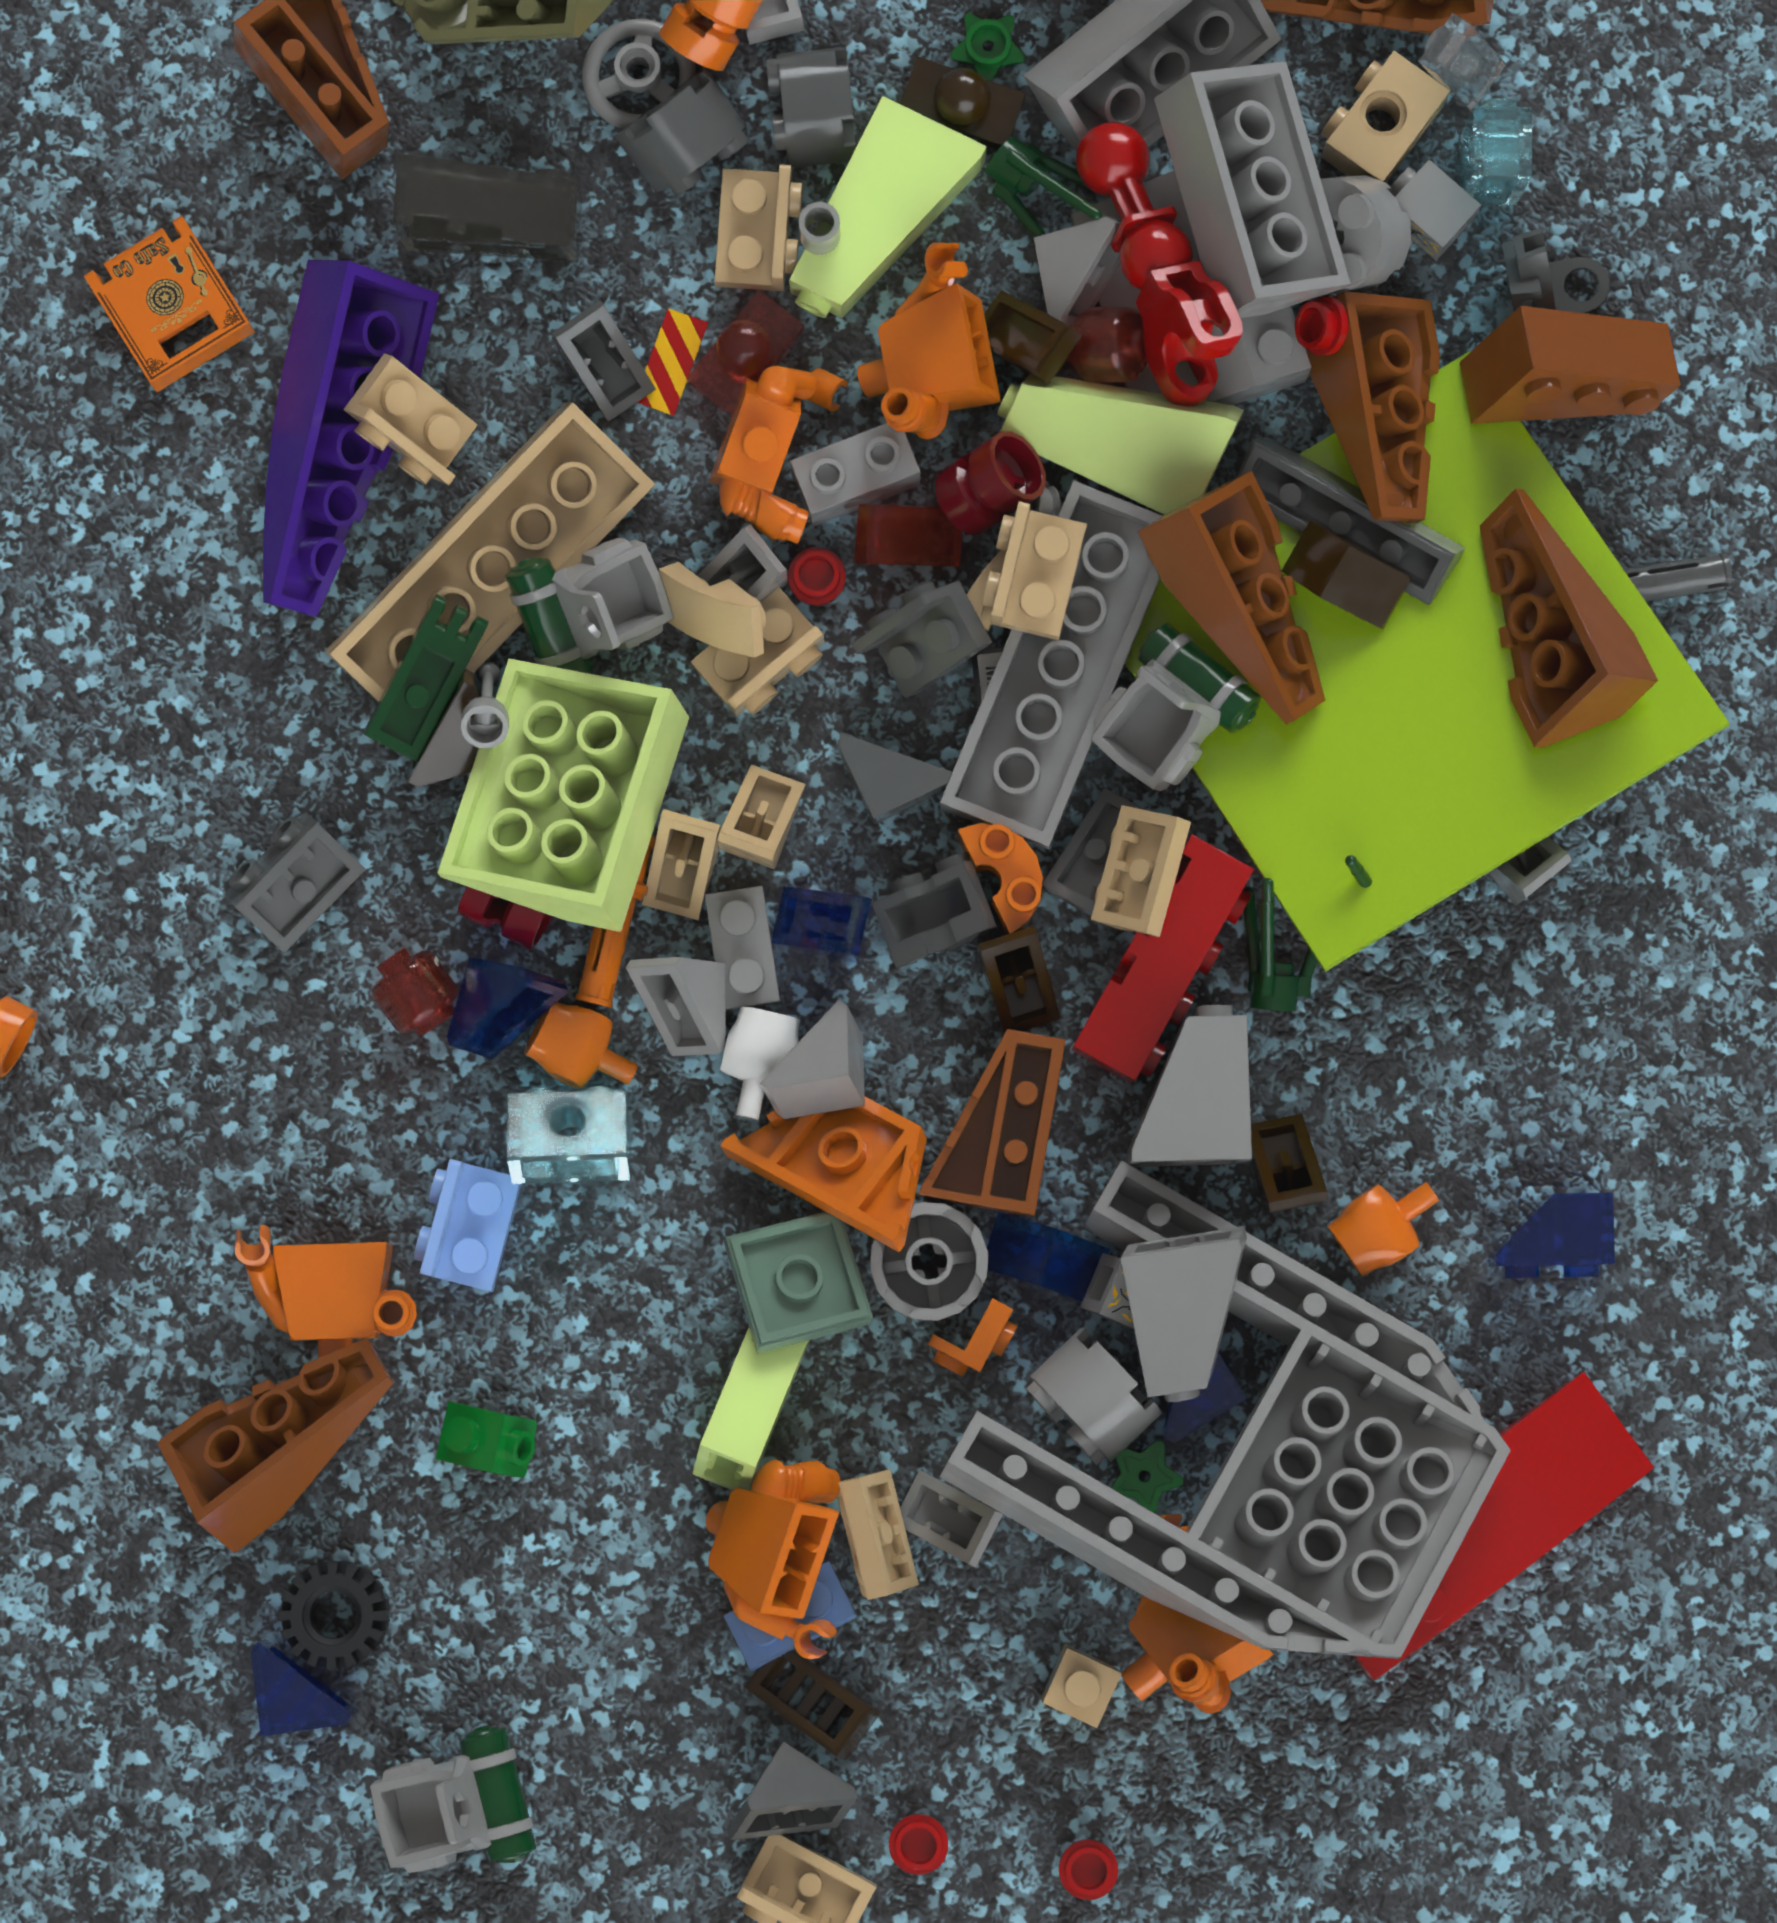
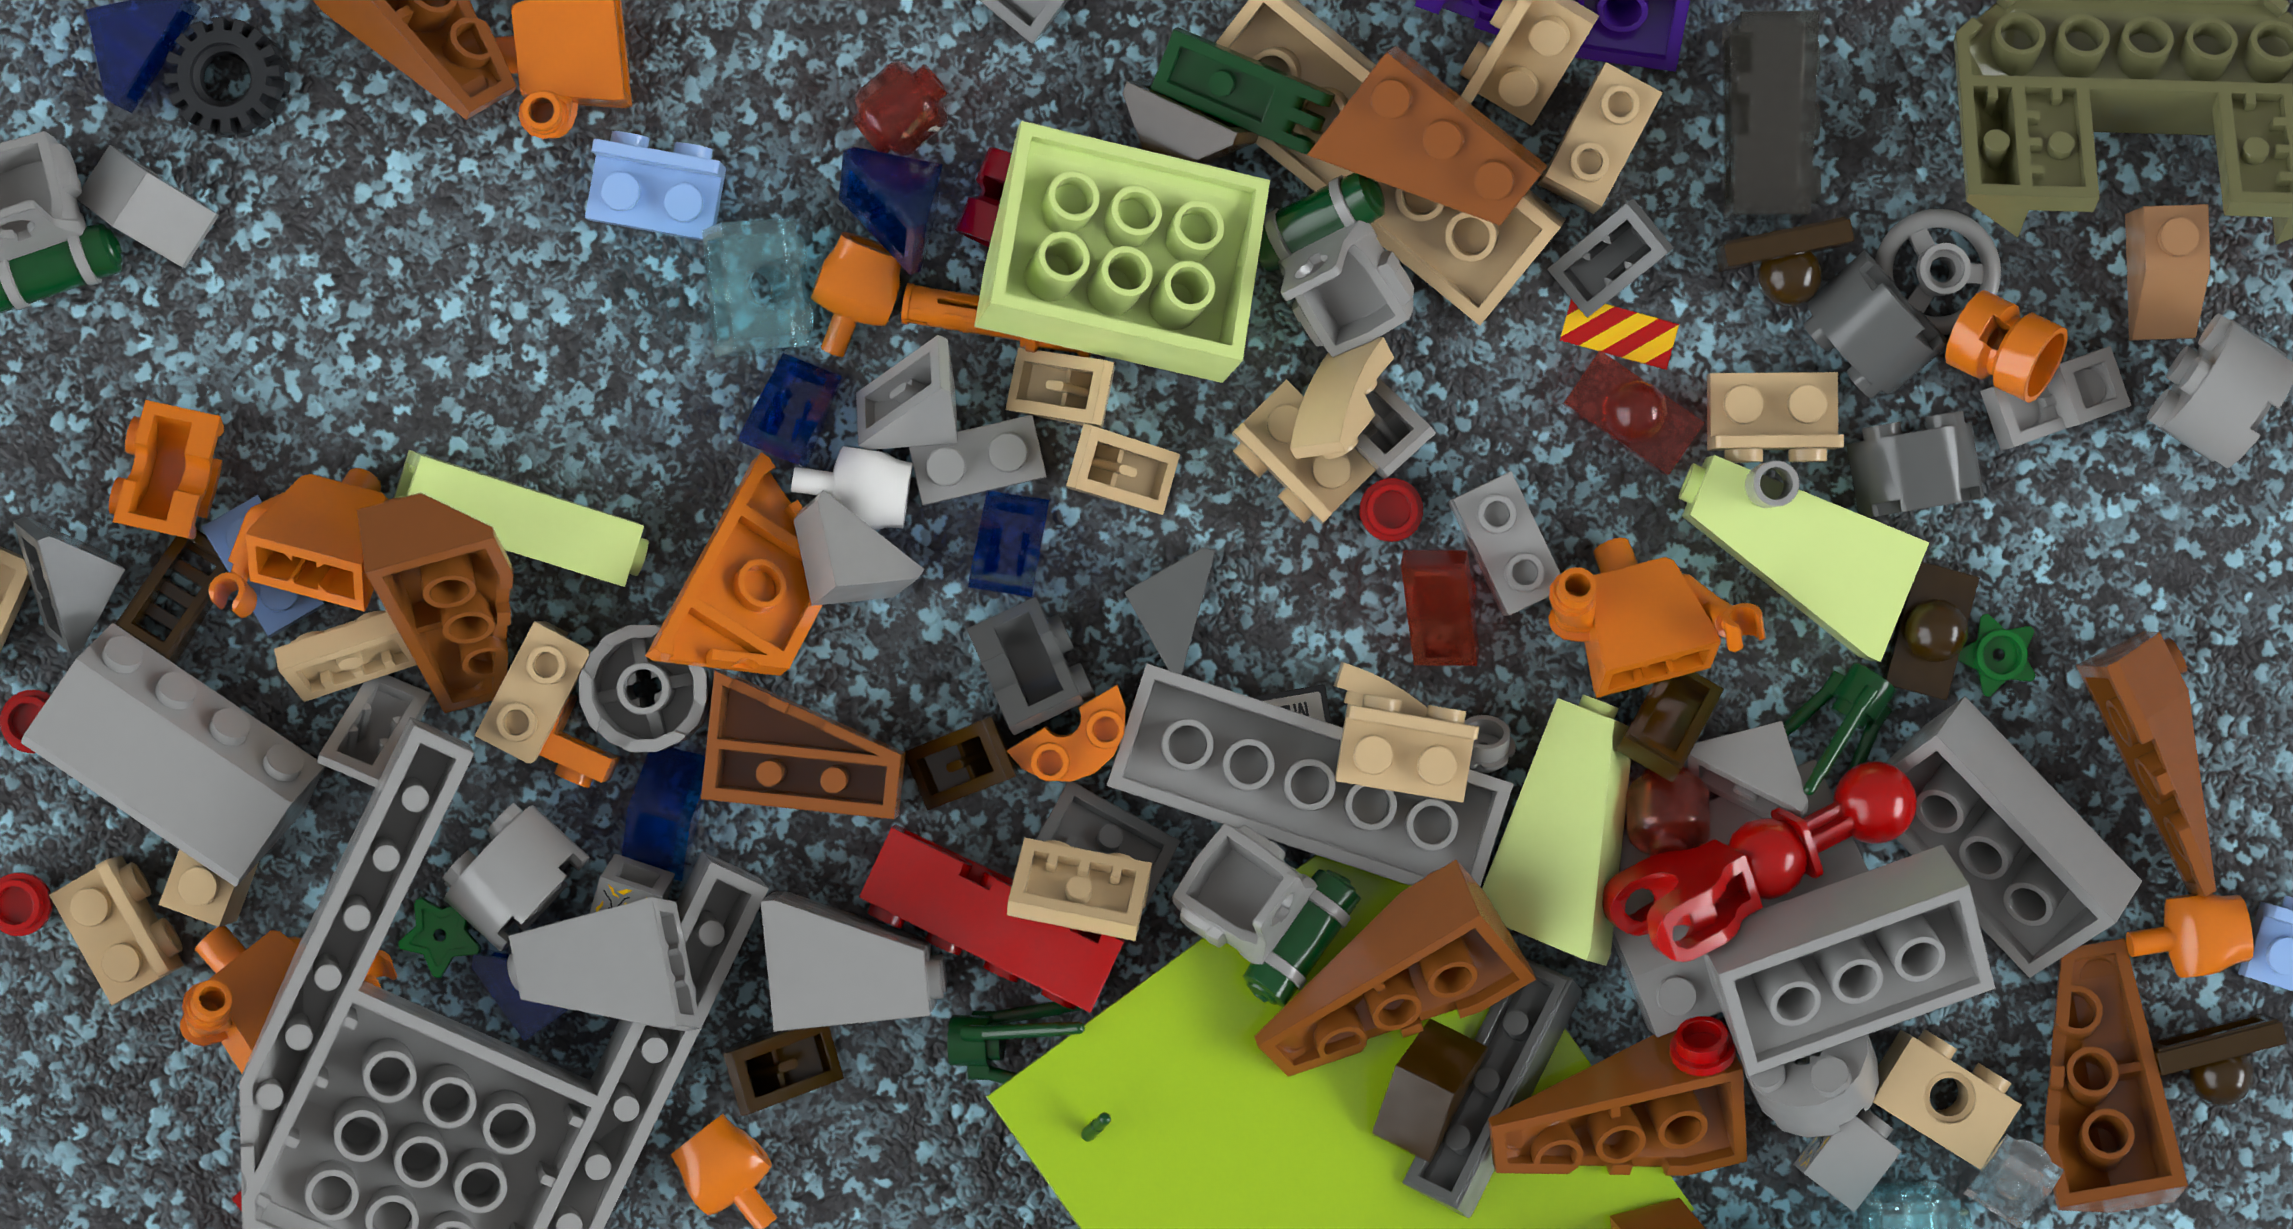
camera: 85 degrees right, 5 degrees up
(446, 1701) = (146, 207): none -> light grey slope
(485, 728) = (1196, 159): light grey hinge -> none
(486, 511) = (1428, 142): none -> dark orange wedge
(487, 1440) = (425, 225): green bracket -> none
(494, 363) = (1600, 138): none -> tan brick
(624, 204) = (1788, 266): none -> dark brown tile
(684, 1113) = (791, 410): none -> clear blue slope
(693, 1693) = (171, 470): none -> orange cylinder
(759, 443) = (1528, 436): orange torso -> none
(798, 1281) = (611, 548): sand green tile -> none
(828, 1429) = (445, 592): none -> dark orange wedge
(926, 635) = (1328, 637): dark grey bracket -> none
(926, 1365) = (533, 692): none -> tan bracket
(958, 1704) = (174, 754): none -> light grey slope
(990, 482) = (1504, 693): dark red wheel -> none
(1117, 1778) = (118, 928): none -> tan bracket

